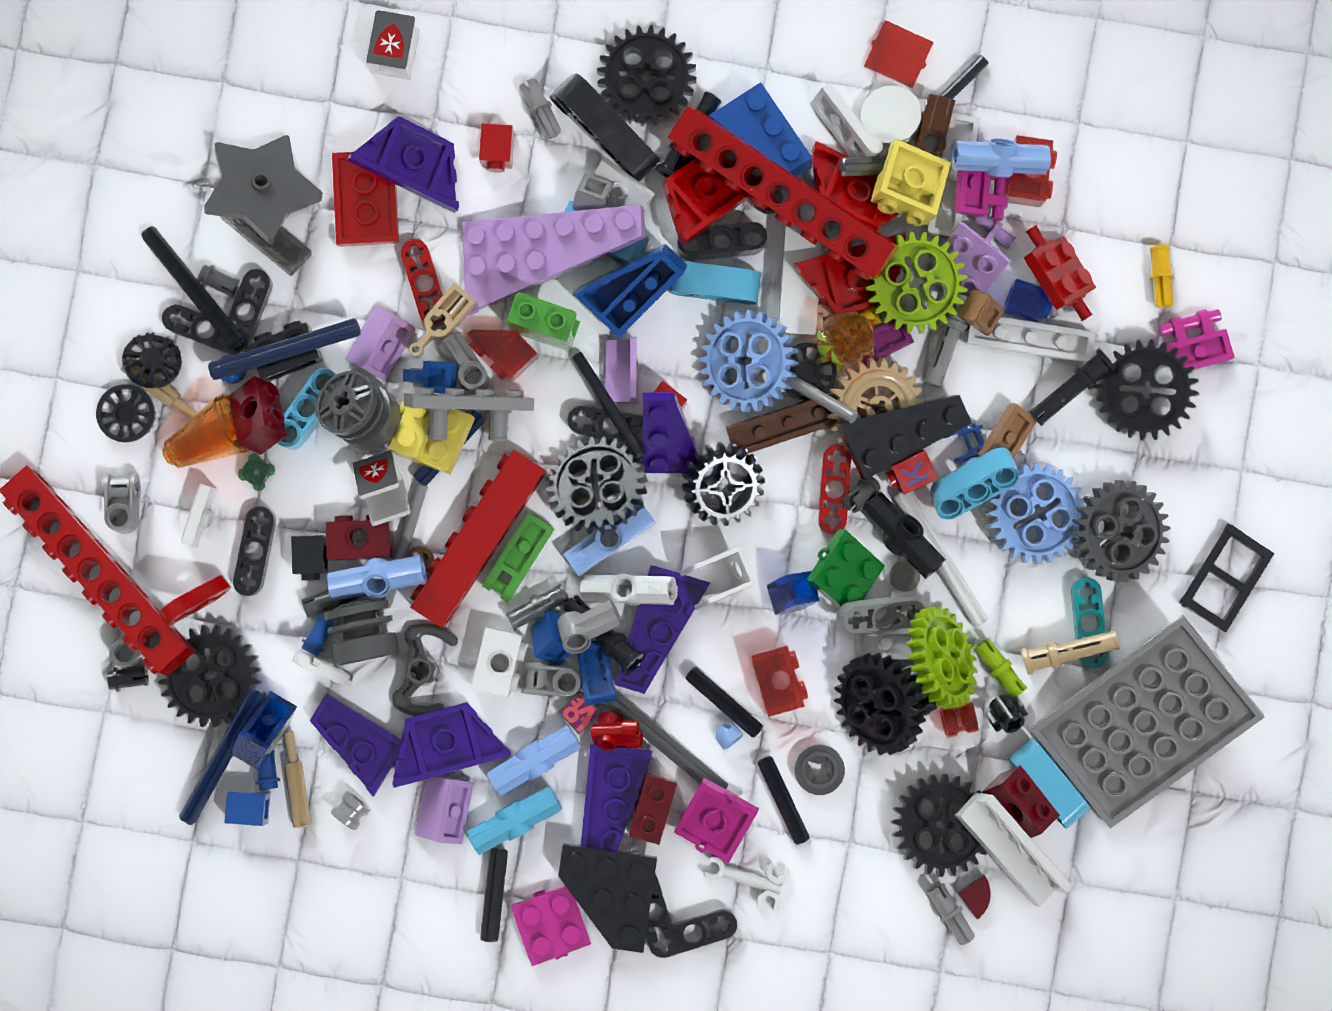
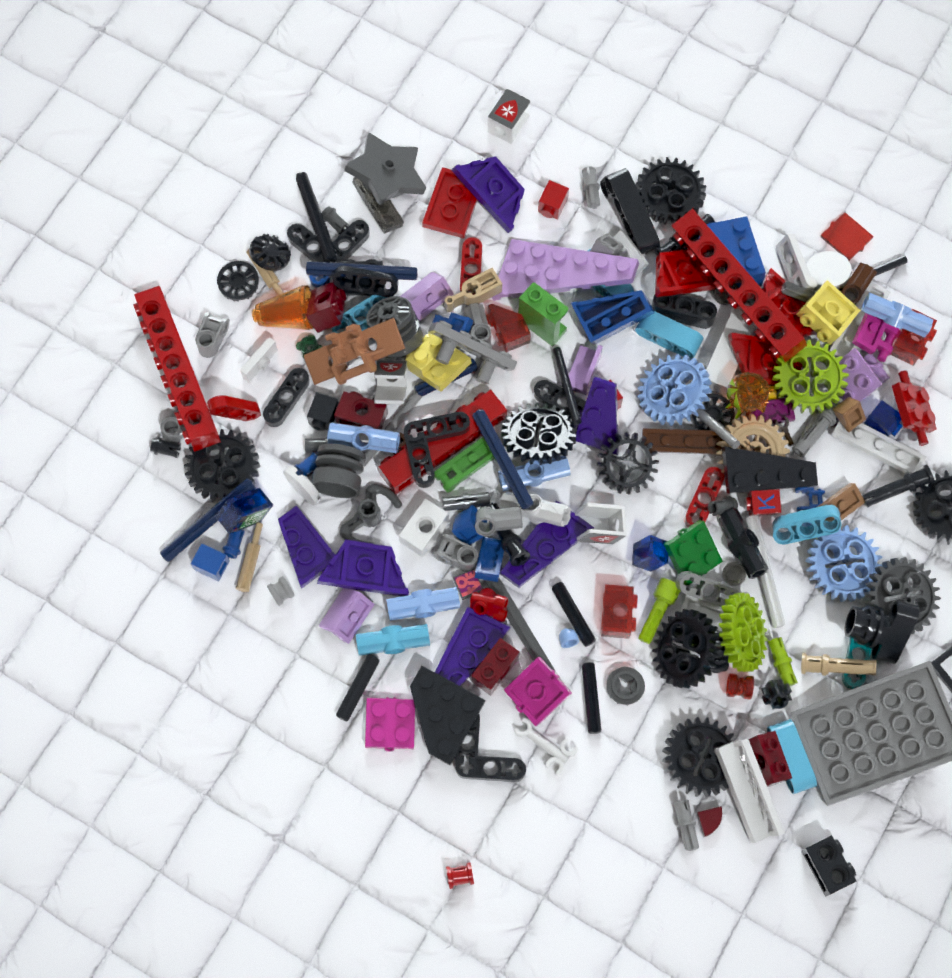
camera: 20 degrees right, 15 degrees down
(286, 373) = (381, 290): none -> black beam
(313, 460) = (352, 345): none -> nougat piece
(453, 557) = (421, 441): none -> black beam
(565, 543) = (503, 459): none -> dark blue axle
(829, 638) = (664, 595): none -> lime piece
(906, 362) = (784, 428): none -> dark brown hand
(1109, 593) = (882, 632): none -> black beam
(1131, 905) = (823, 869): none -> black brick

